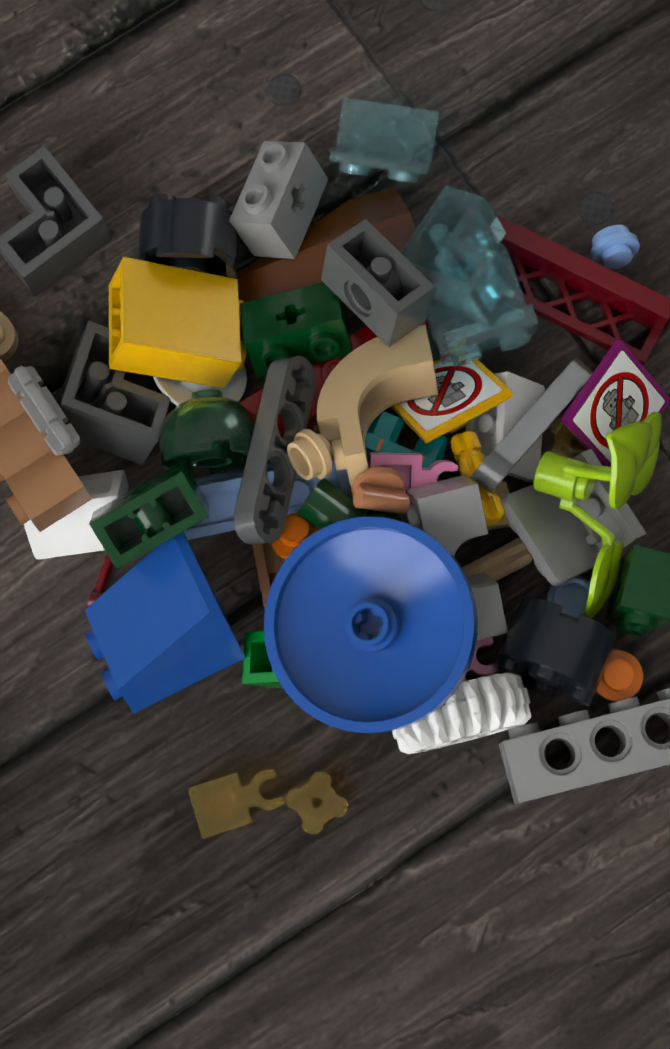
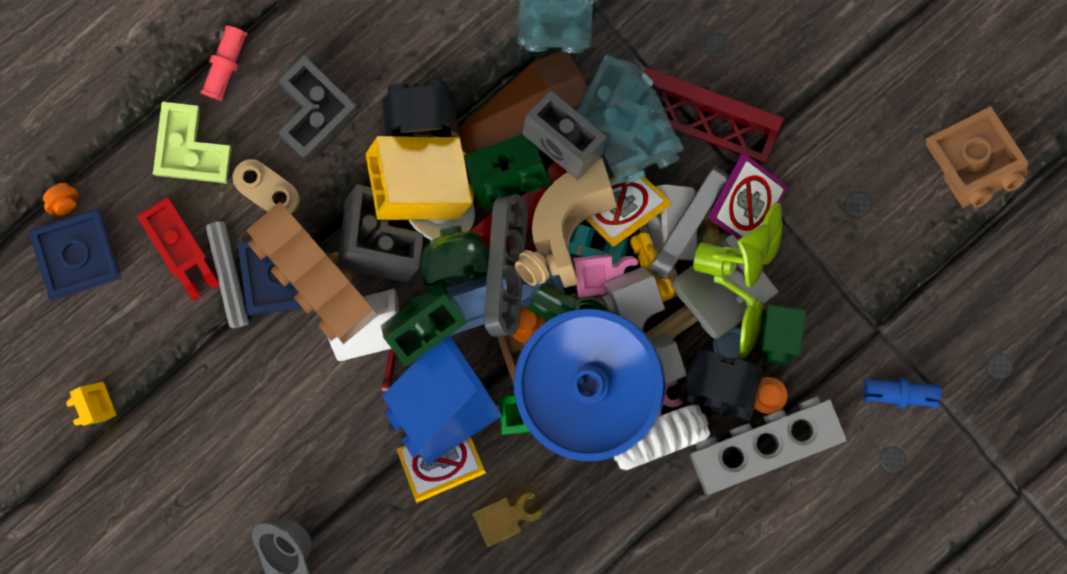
camera: 10 degrees left, 5 degrees up
(43, 410) = (336, 257): light grey axle -> none
(154, 727) = (444, 473): none -> piece
(279, 199) = (482, 73): light grey brick -> none
(302, 799) = (565, 523): clear yellow plate -> none
(380, 491) = (585, 288): nougat plate -> none
(614, 247) = (734, 78): light blue plate -> none

